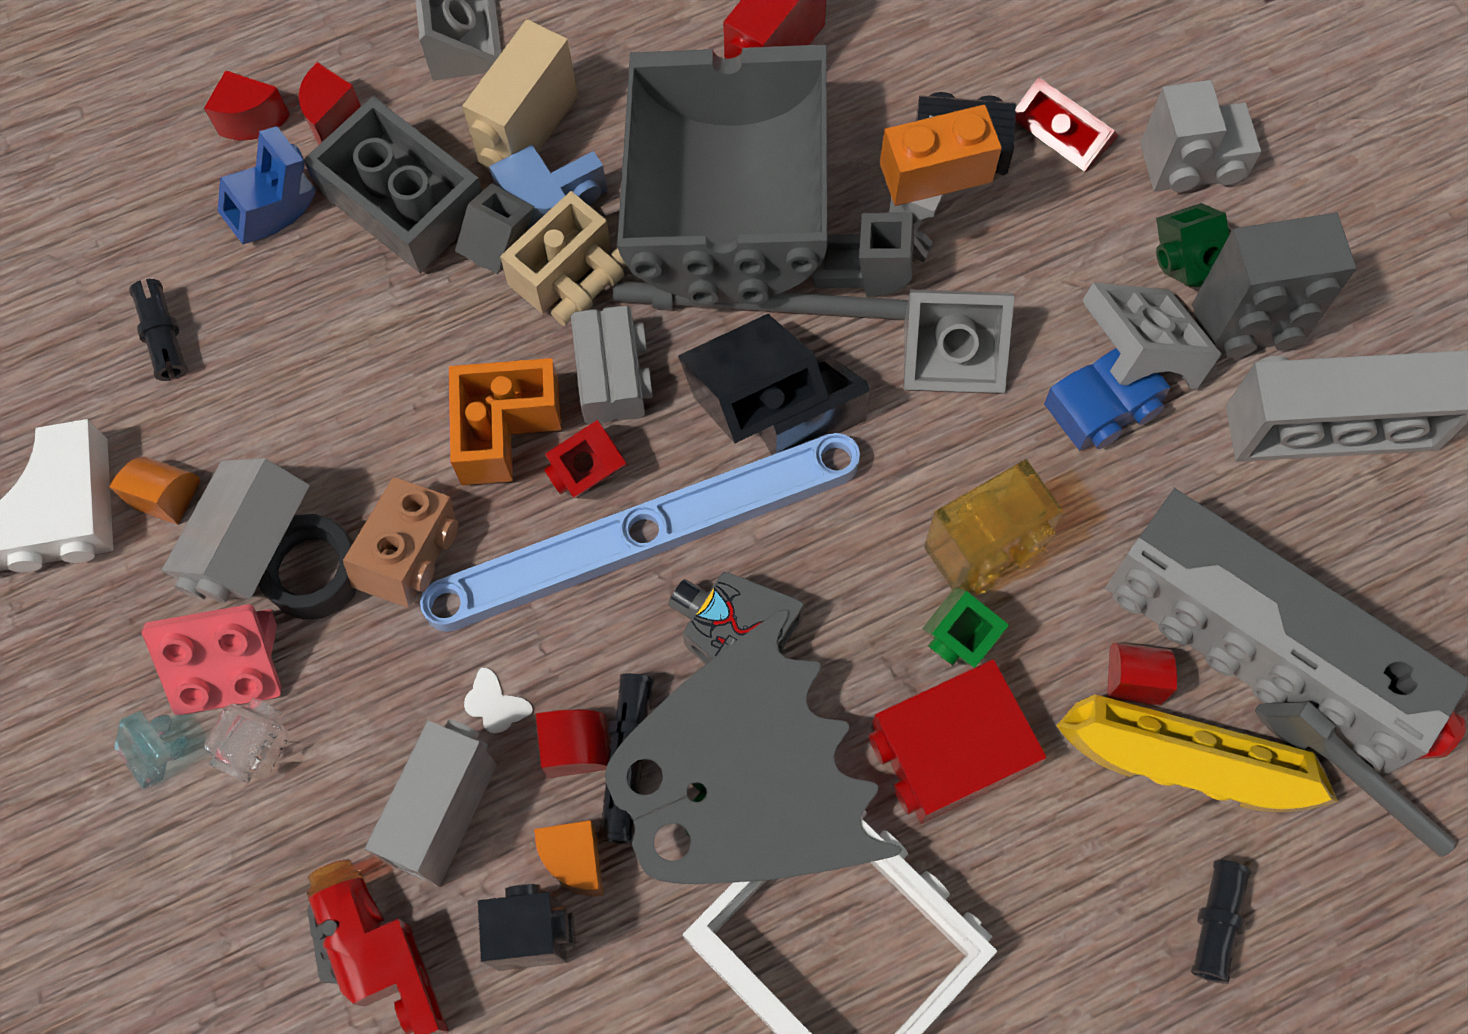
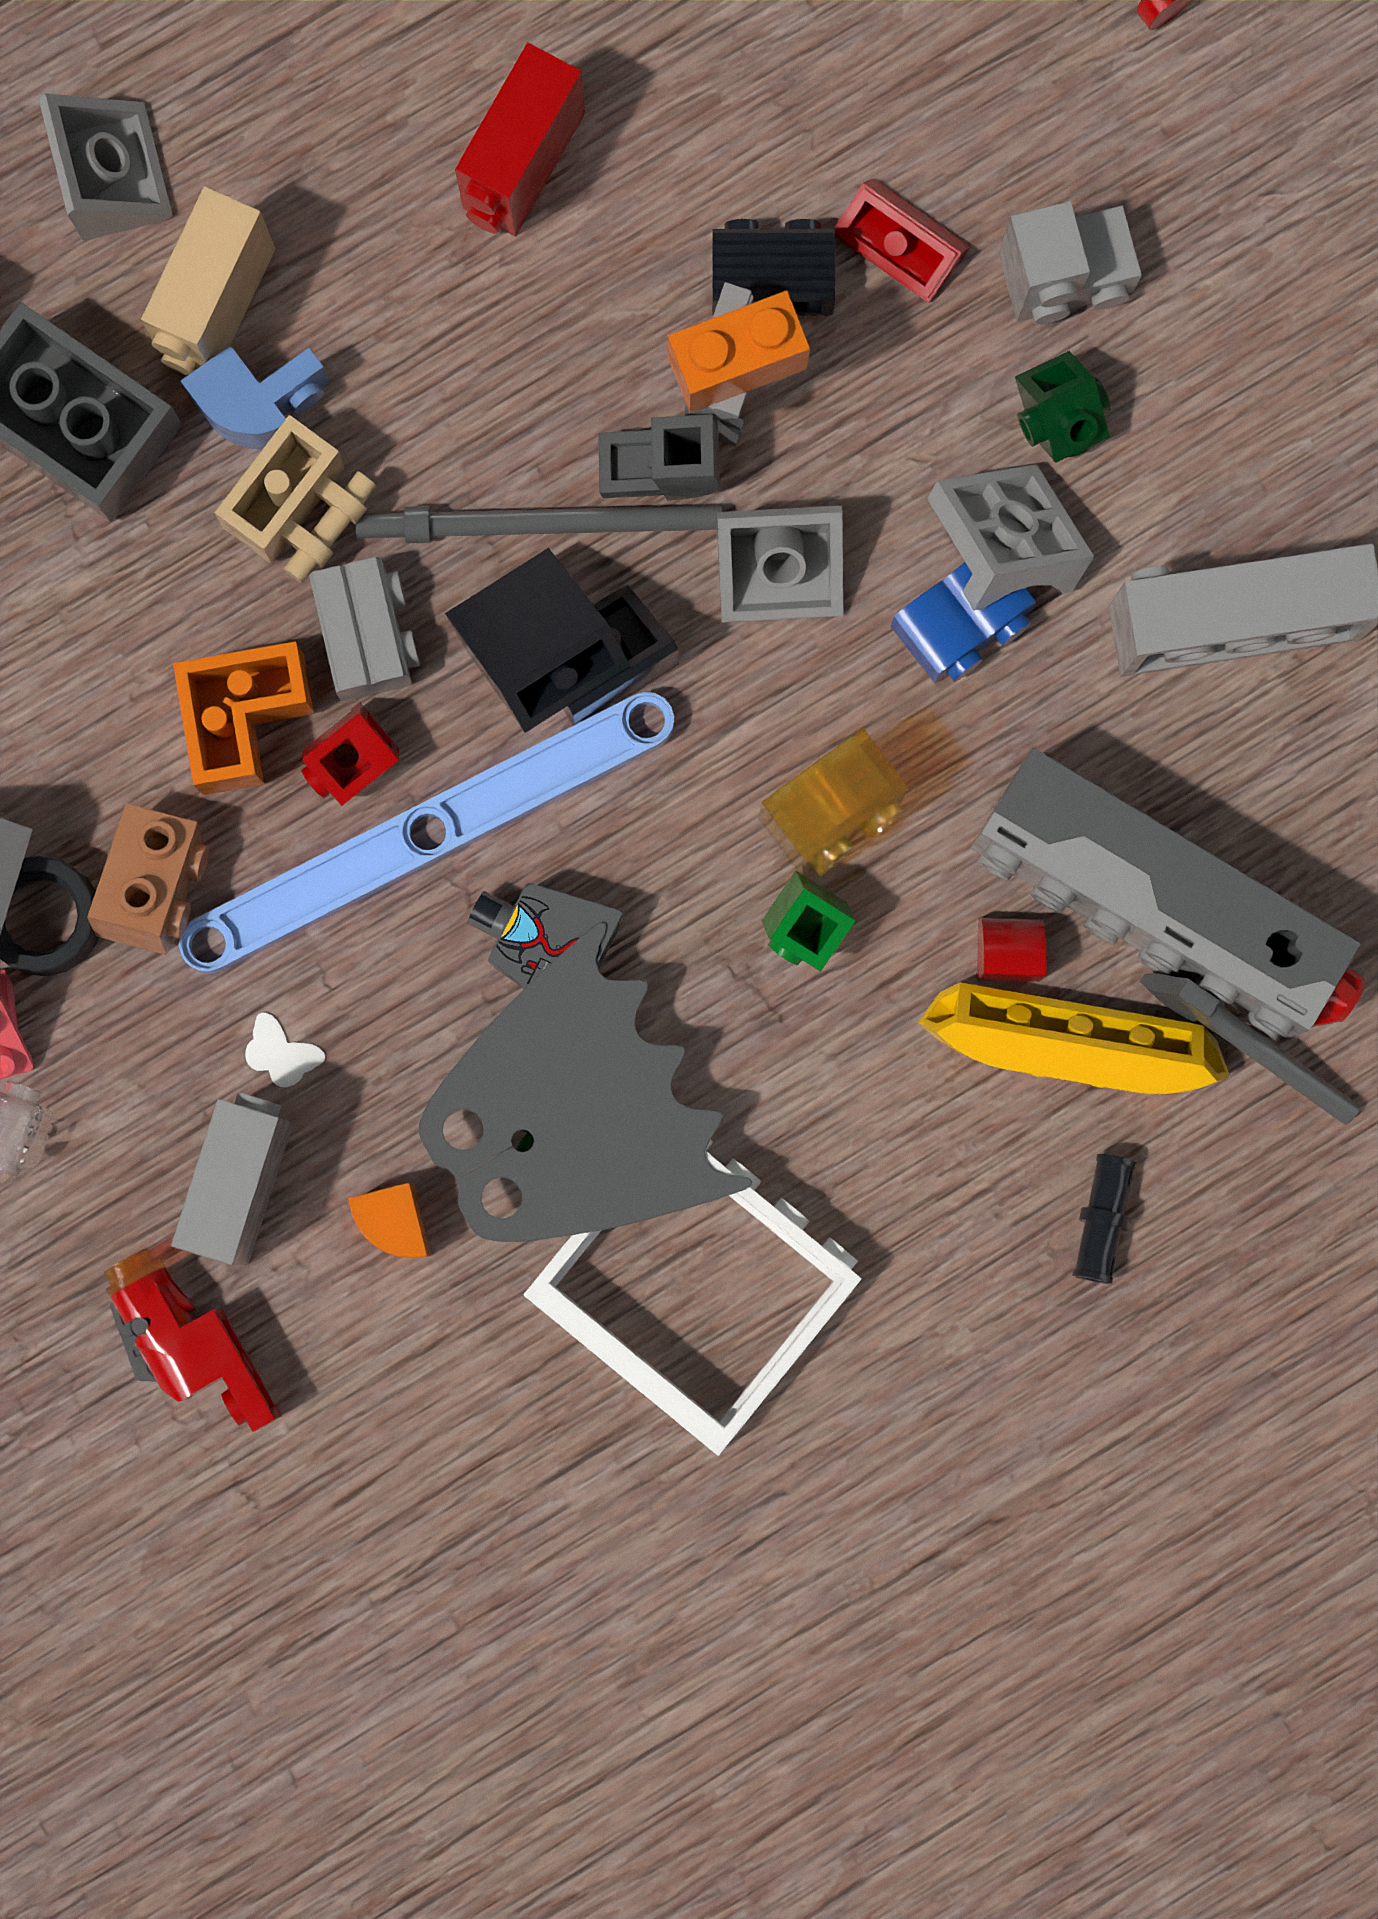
camera: 10 degrees left, 15 degrees up
(491, 226) = (198, 464): dark grey brick -> none
(524, 929) = (353, 1306): black brick -> none
(573, 742) = (378, 1092): red brick -> none
(631, 710) = (438, 1058): black pin -> none
(725, 171) = (476, 368): dark grey cylinder -> none
(955, 742) = (805, 1052): red brick -> none
(1273, 283) = (1149, 472): dark grey brick -> none

